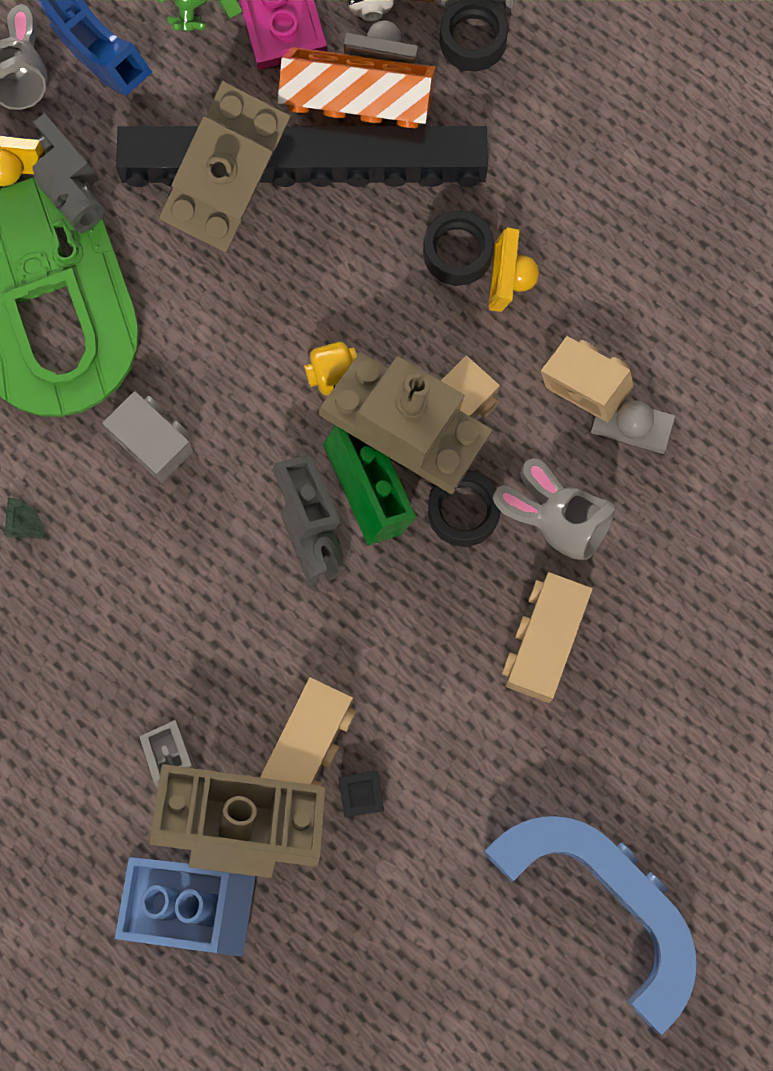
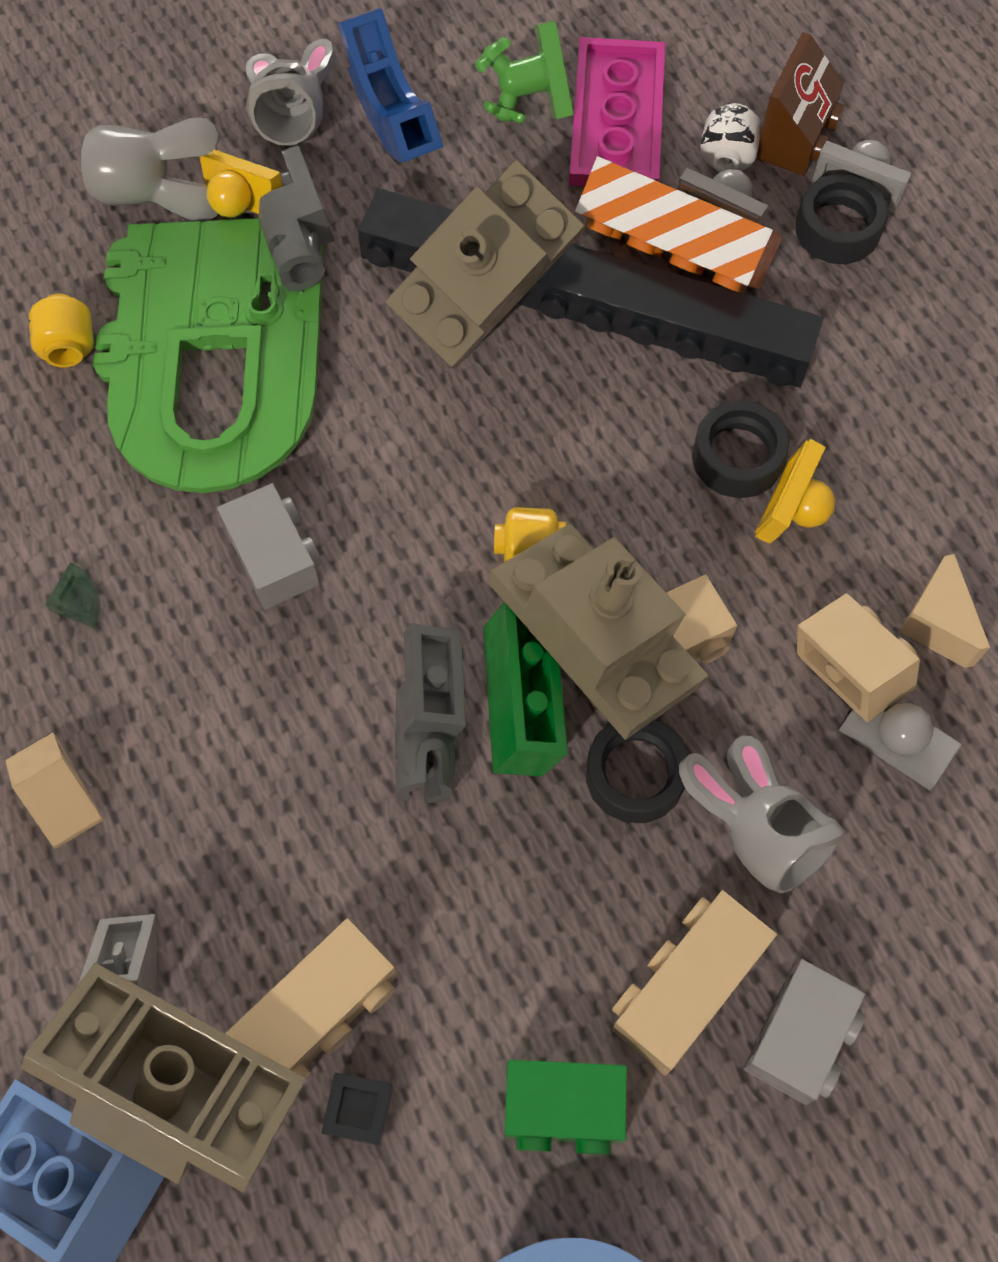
camera: 20 degrees right, 10 degrees down
(68, 661) = (52, 791): none -> tan slope
(492, 743) = (565, 1104): none -> green brick
(630, 644) = (806, 1033): none -> light grey brick
(639, 328) = (947, 617): none -> tan slope

